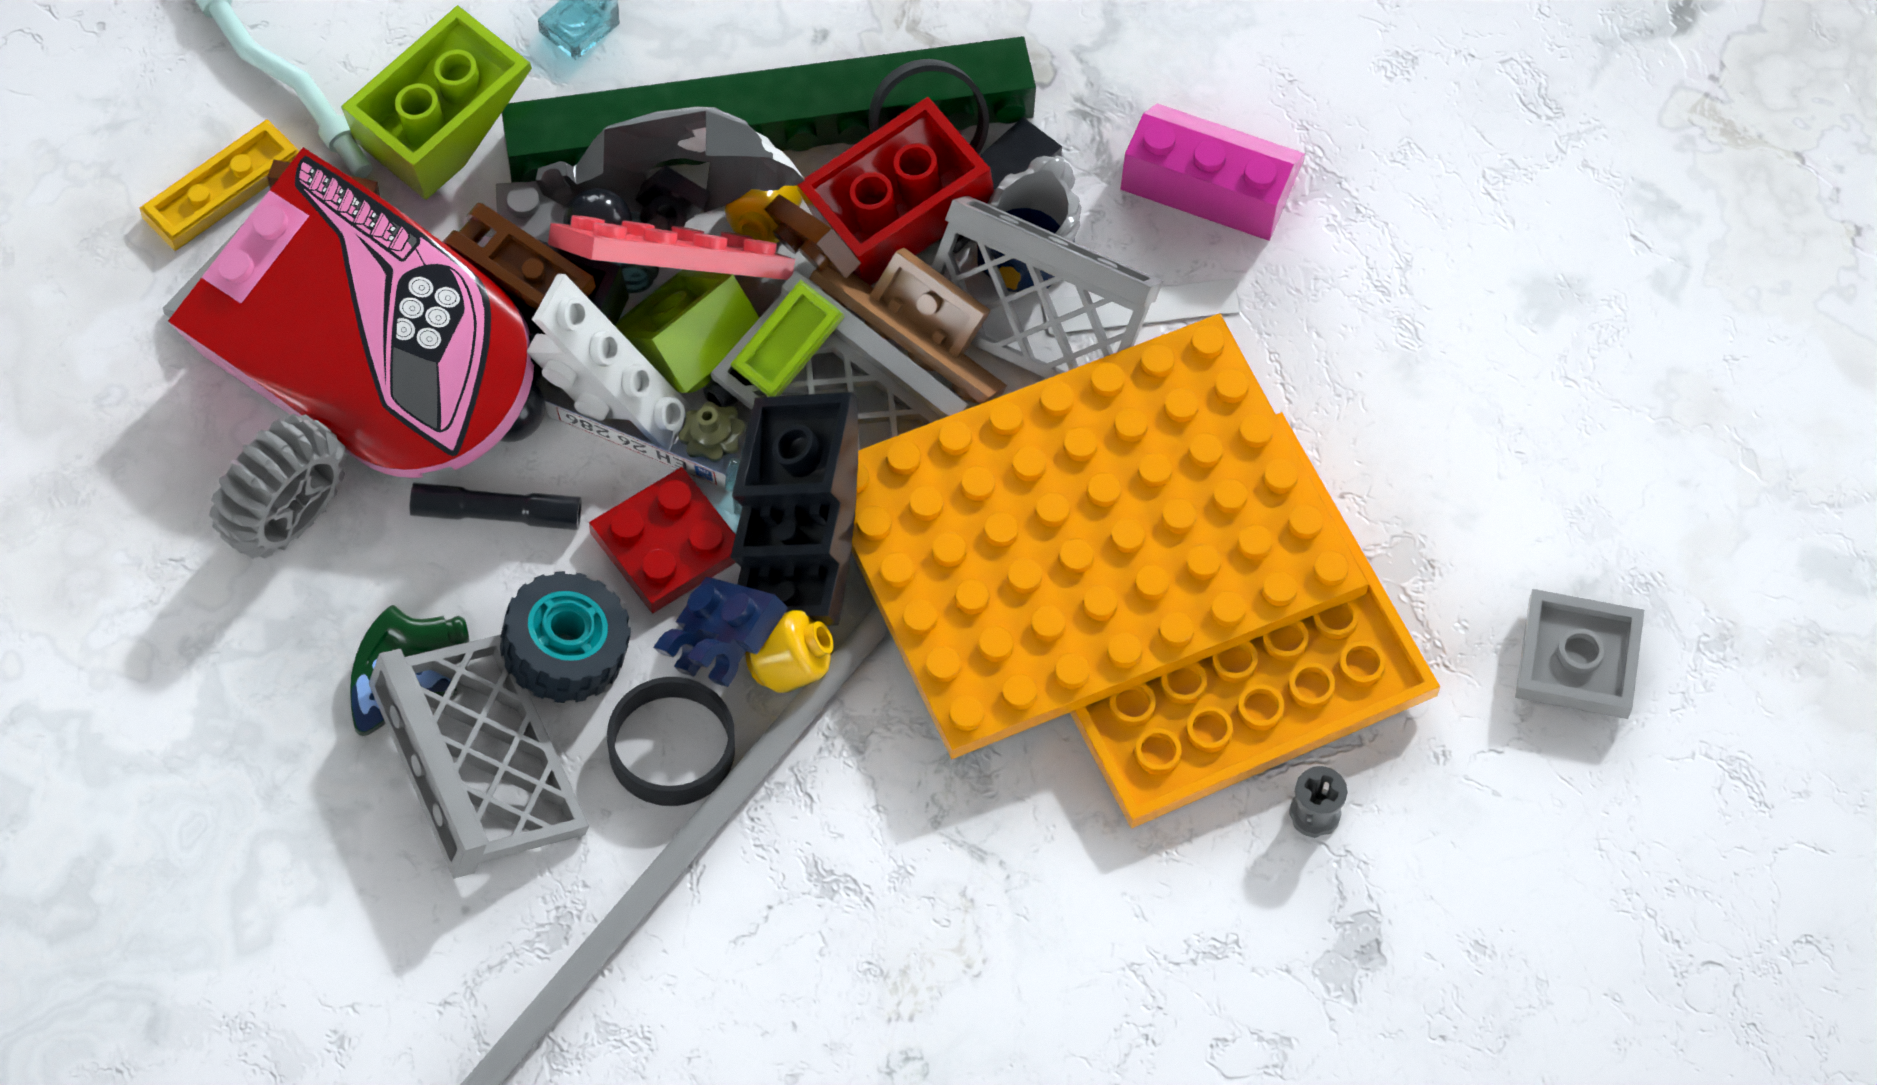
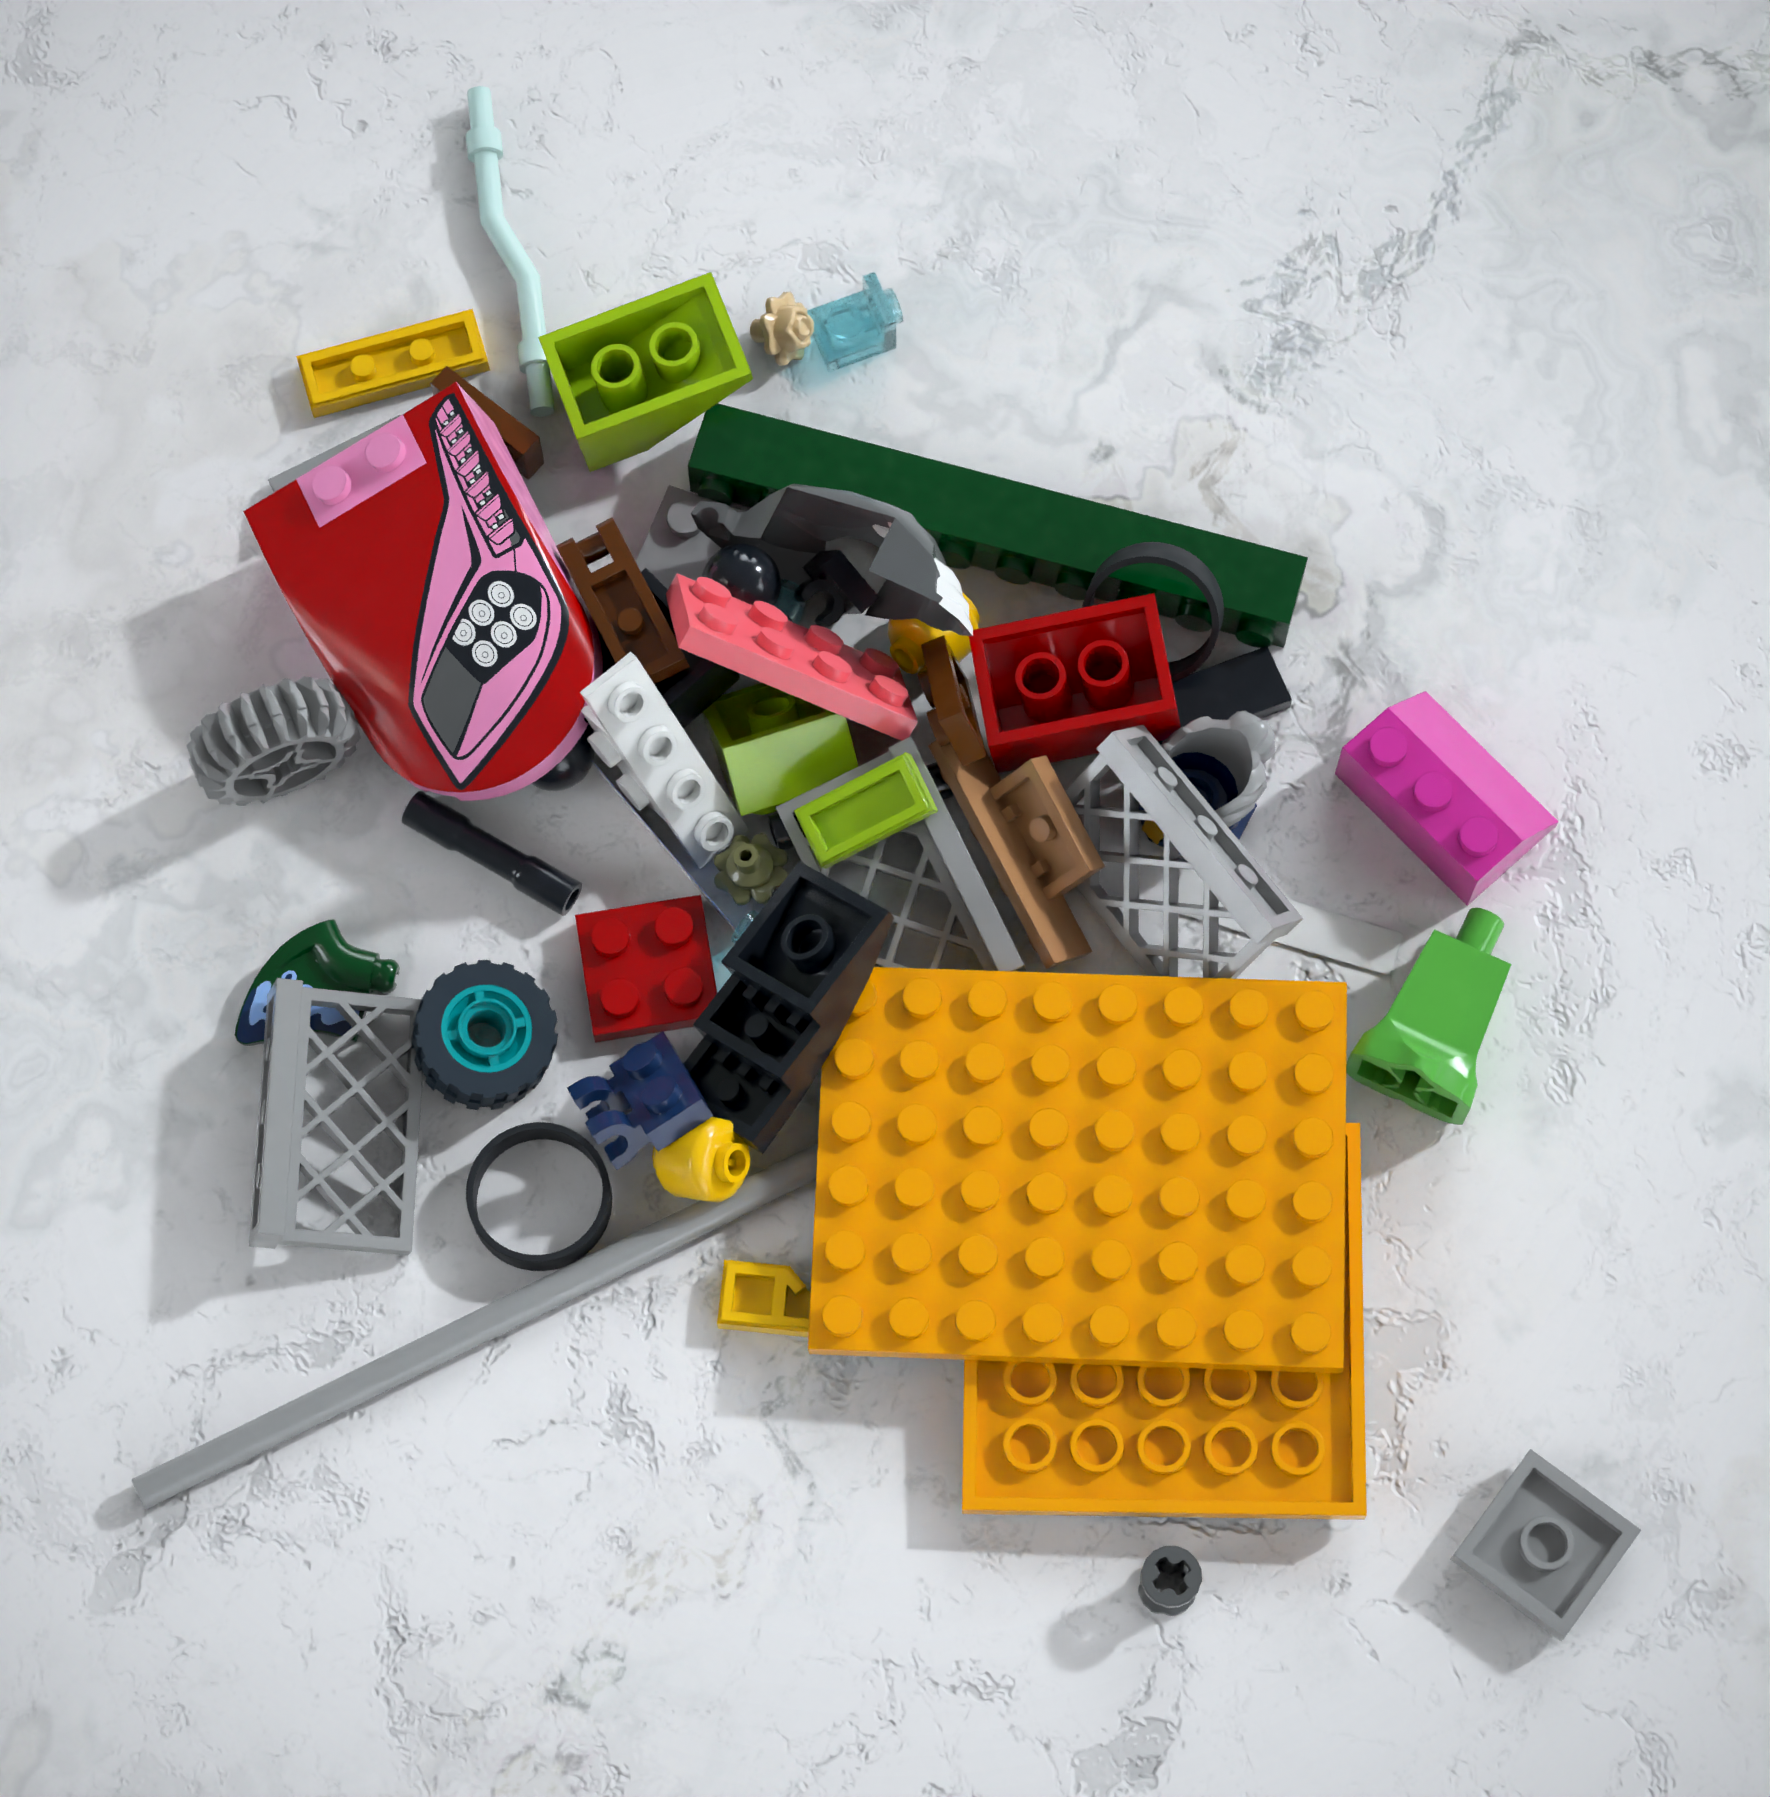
camera: 30 degrees right, 10 degrees up
(529, 36) = (783, 328): none -> tan plant
(892, 741) = (763, 1299): none -> yellow tile
(1300, 324) = (1437, 1023): none -> bright green piece

